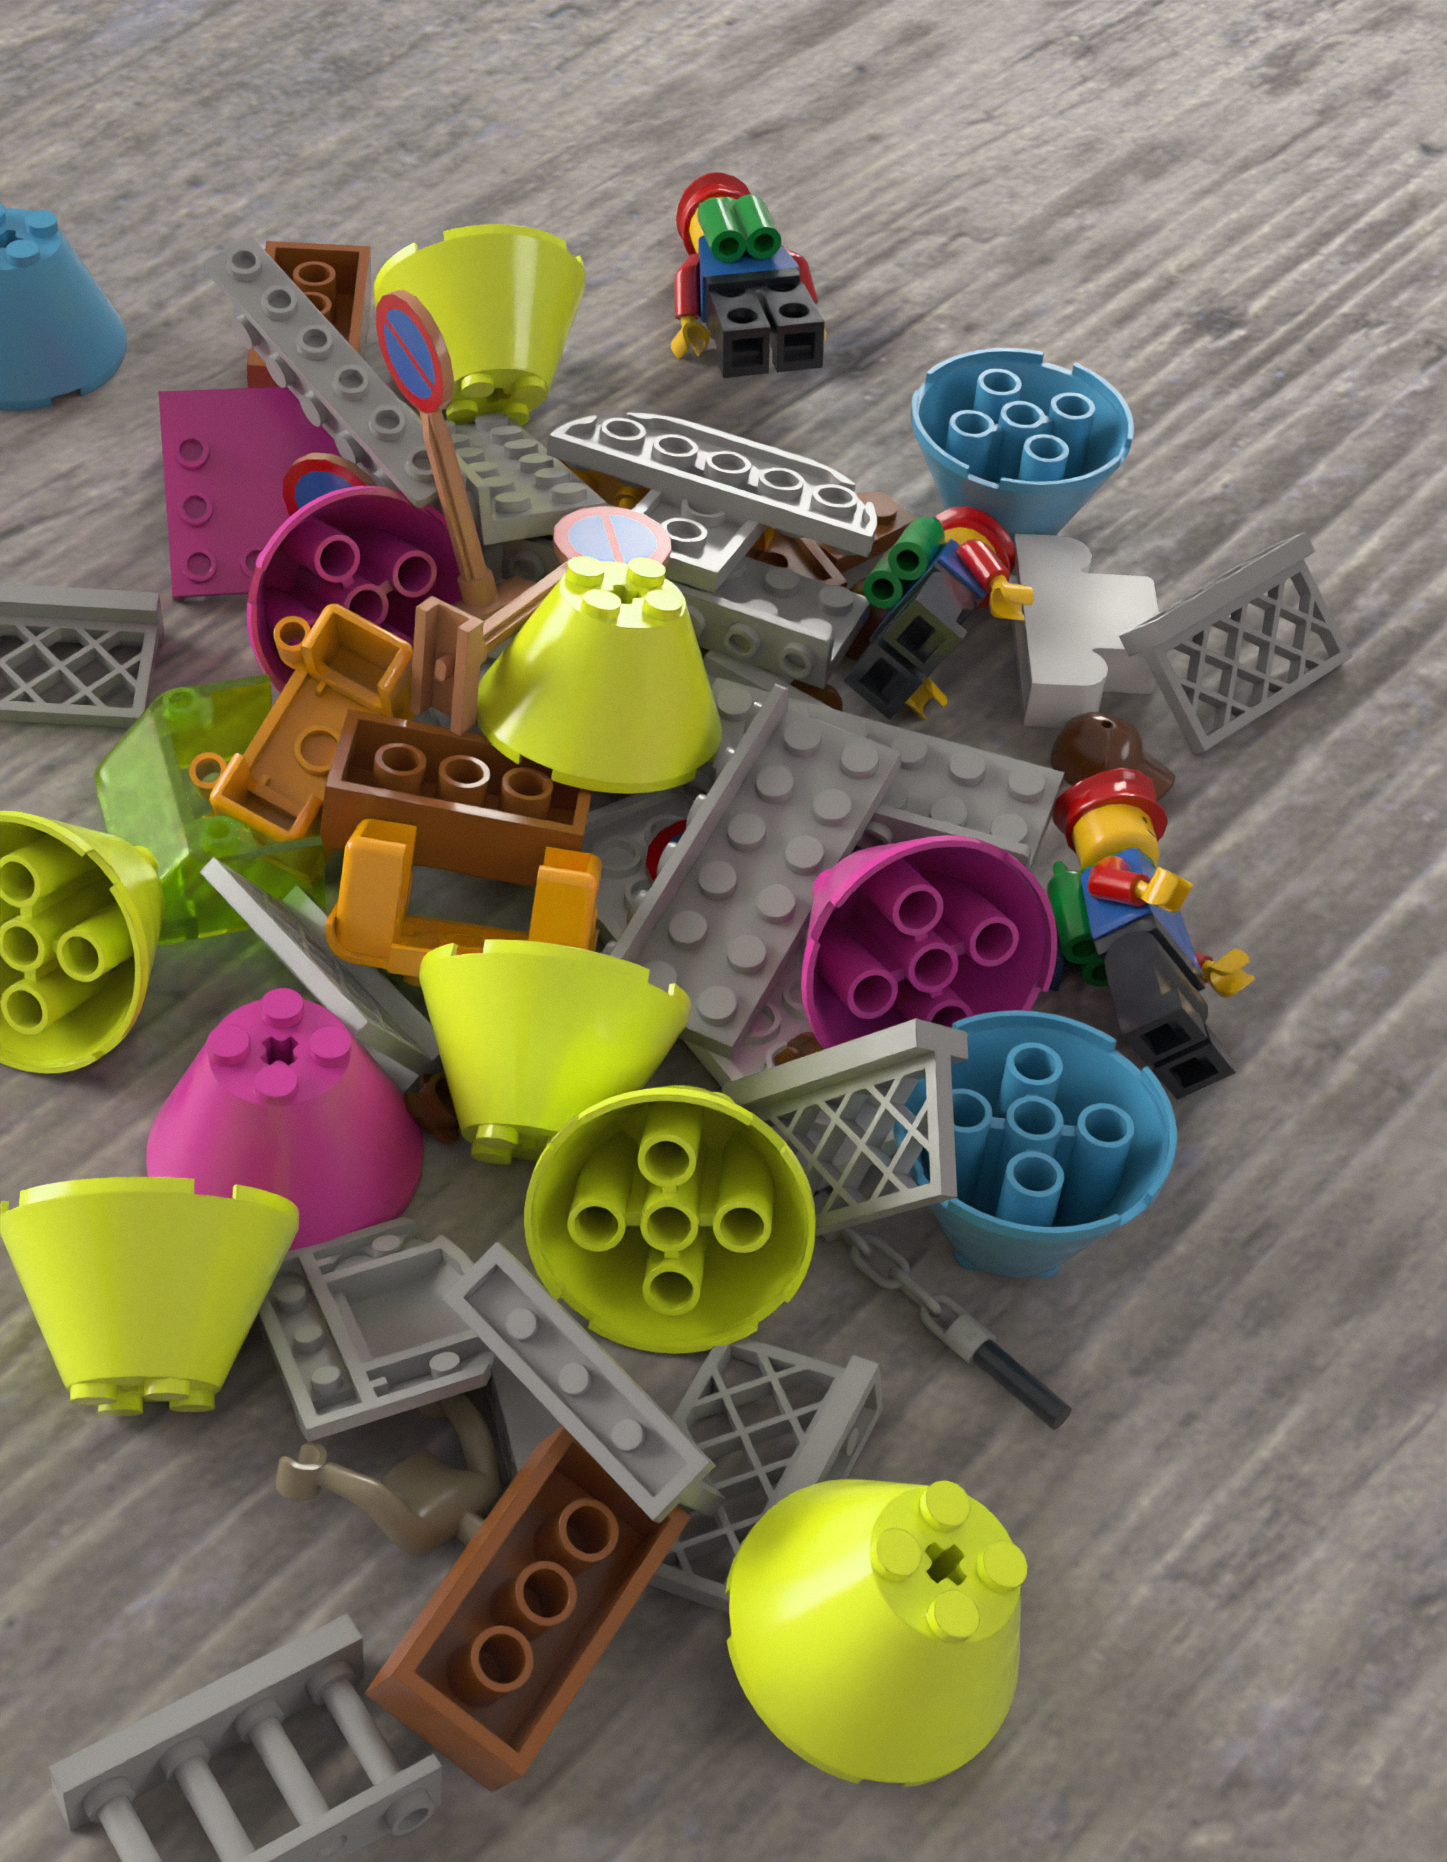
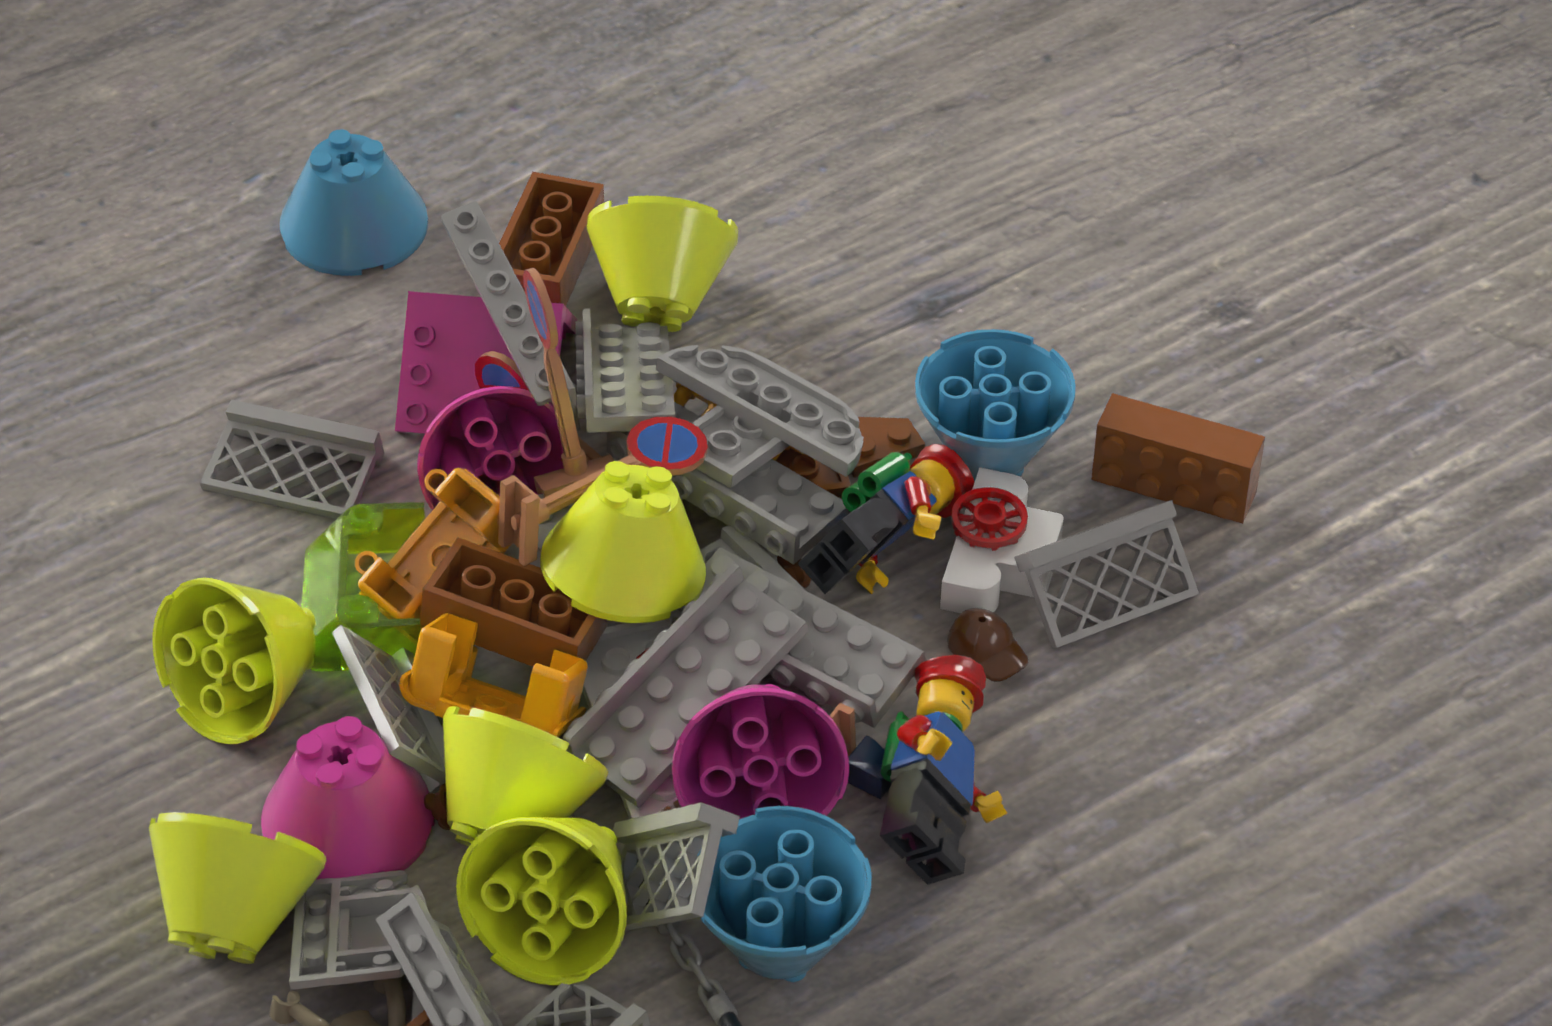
camera: 20 degrees right, 0 degrees up
(742, 284) = (864, 244): piece -> none
(1064, 592) = (989, 518): none -> red wheel
(1261, 485) = (1177, 458): none -> dark orange brick

